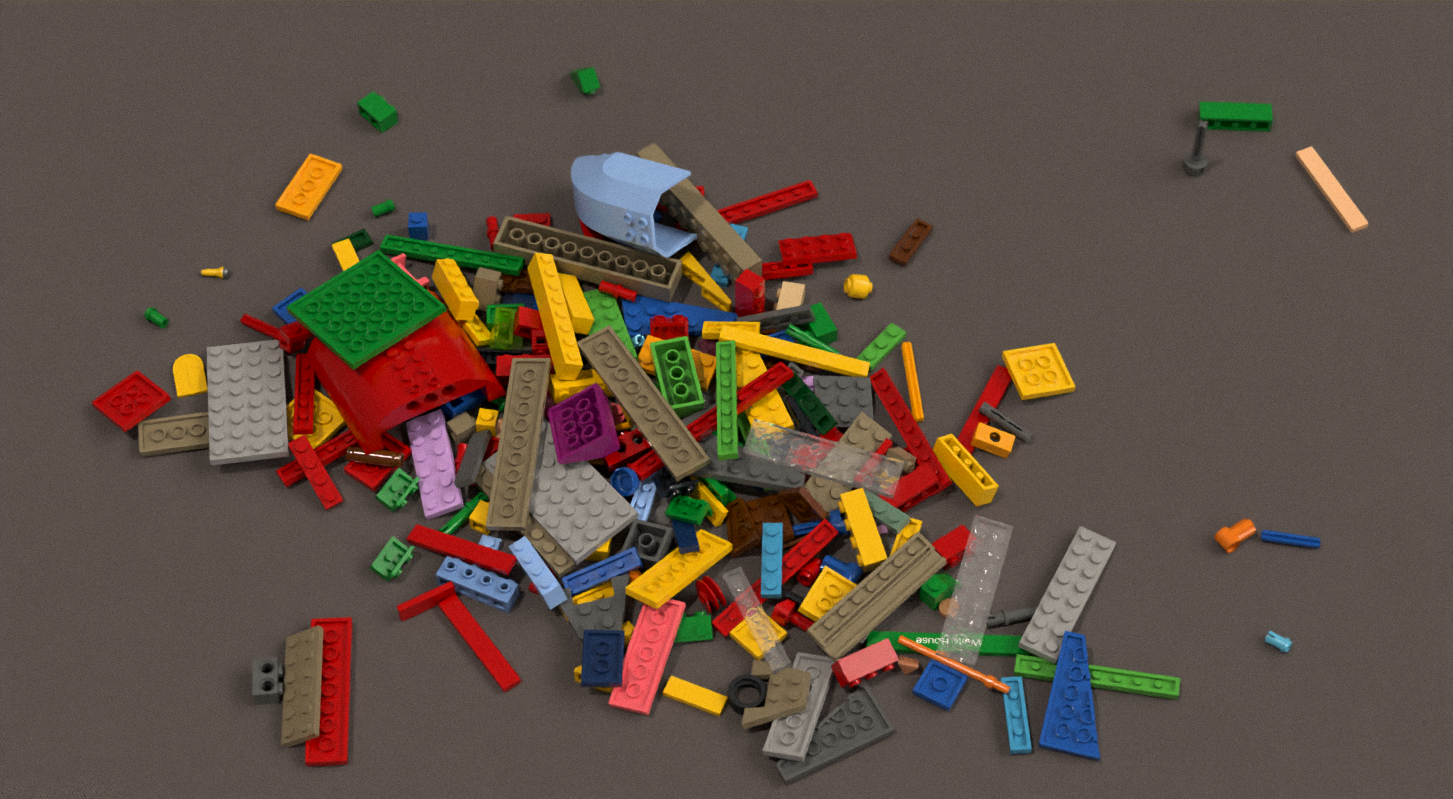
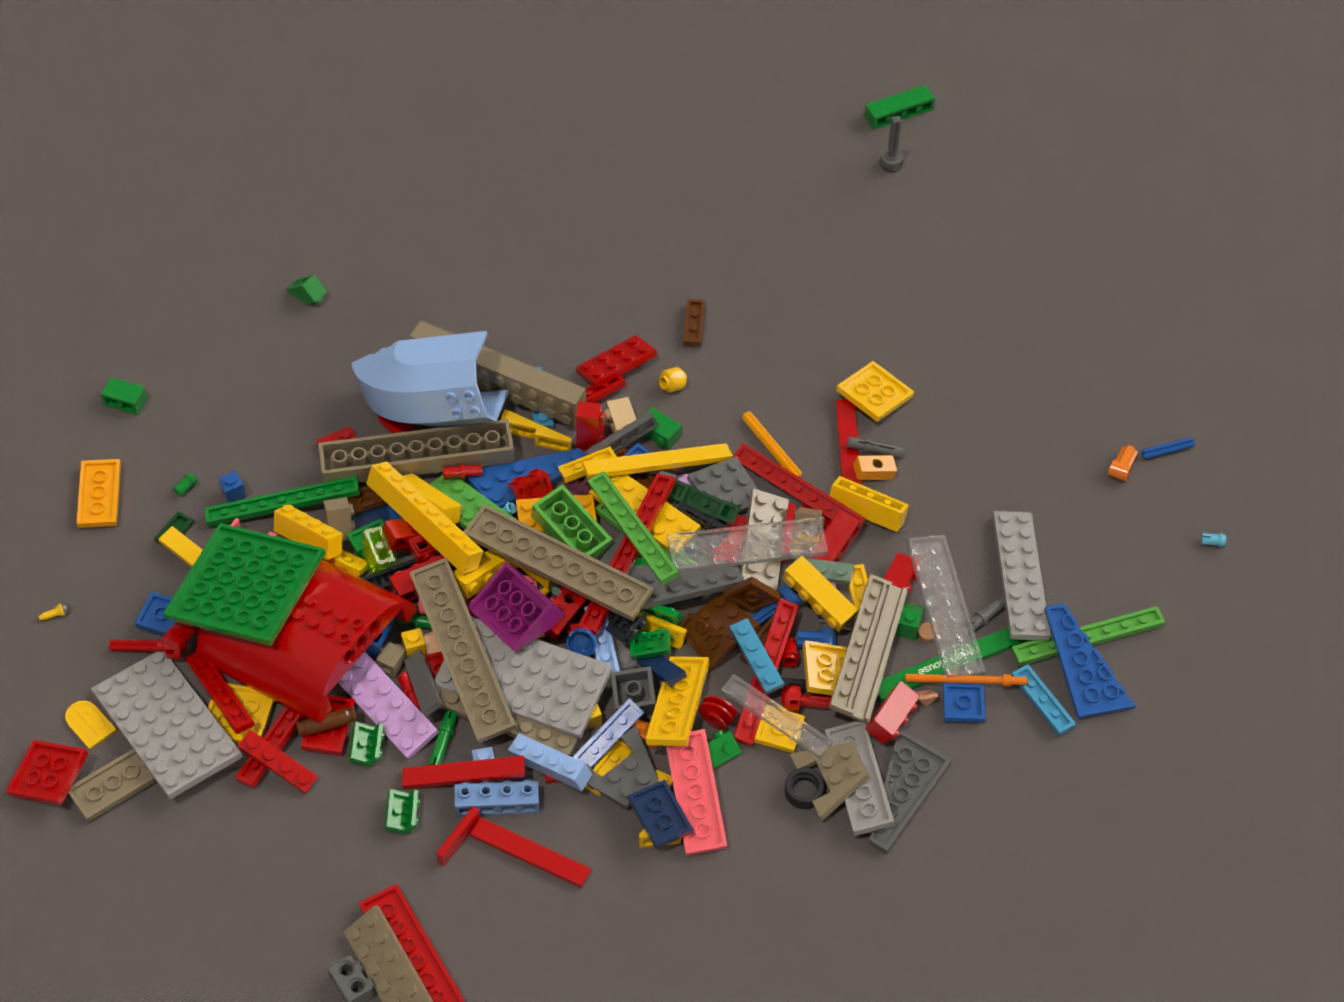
camera: 30 degrees left, 0 degrees up
(152, 315) = (20, 681): green pin -> none
(479, 517) = (463, 734): yellow brick -> none
(492, 231) = (307, 465): red pin -> none
(695, 696) = (757, 811): yellow tile -> none
(767, 203) = (548, 335): red plate -> none
(808, 340) = (657, 444): green pin -> none
(882, 345) = (725, 423): bright green plate -> none
(1331, 189) = (1014, 139): light nougat tile -> none

